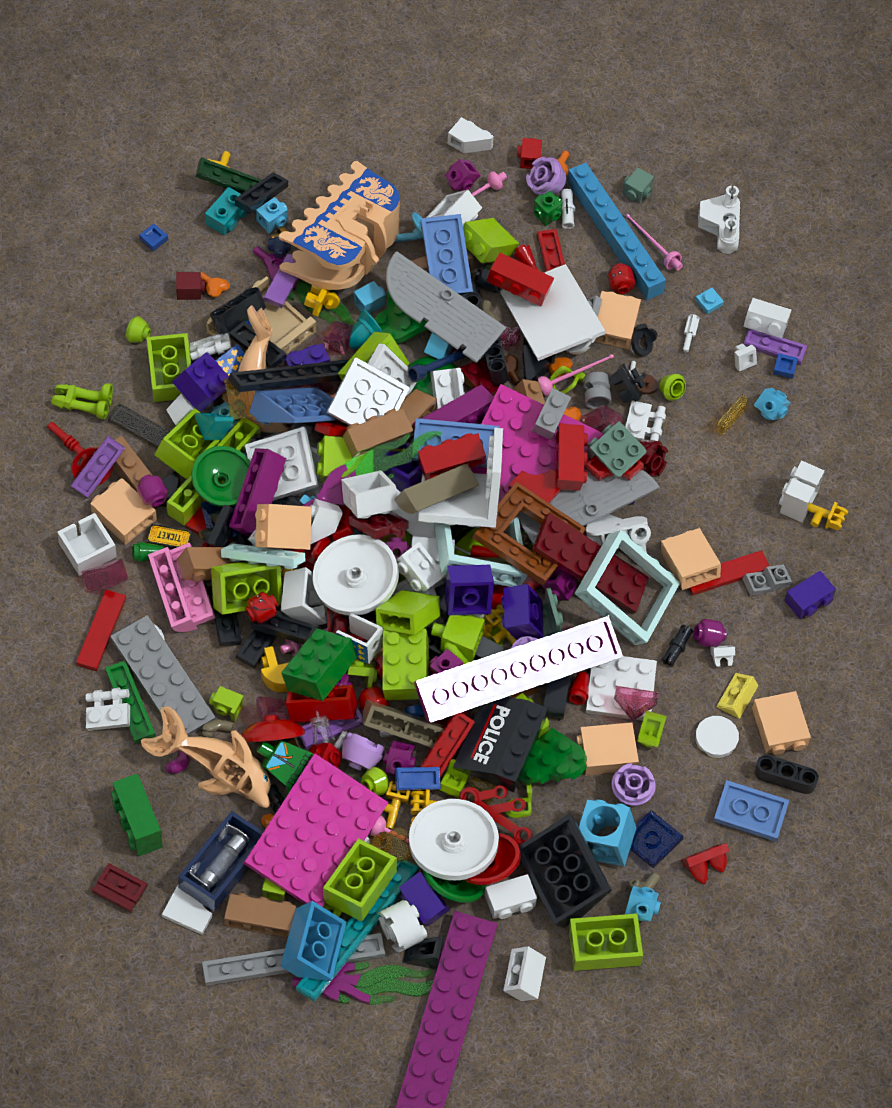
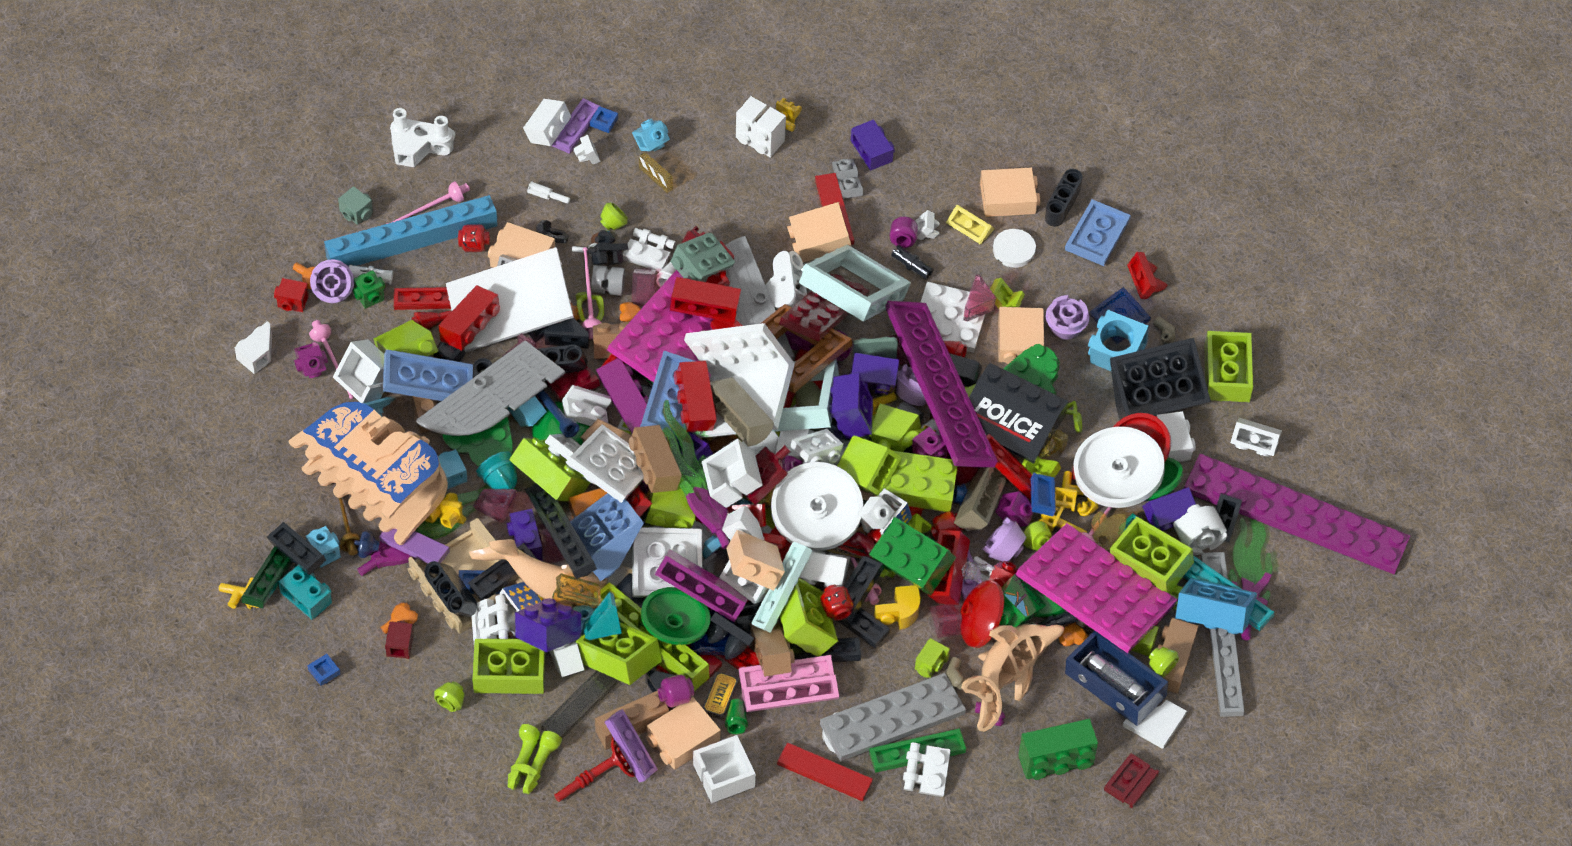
camera: 80 degrees left, 5 degrees down
(105, 575) = (764, 759): clear pink slope -> none
(238, 895) = (1163, 660): none -> lime cone
(358, 621) = (876, 512): none -> white plate
(495, 810) = (1083, 433): red plant -> none
(551, 414) = (656, 303): light grey brick -> none
(643, 902) = (1190, 327): medium azure brick -> none
(709, 300) = (510, 171): medium azure plate -> none

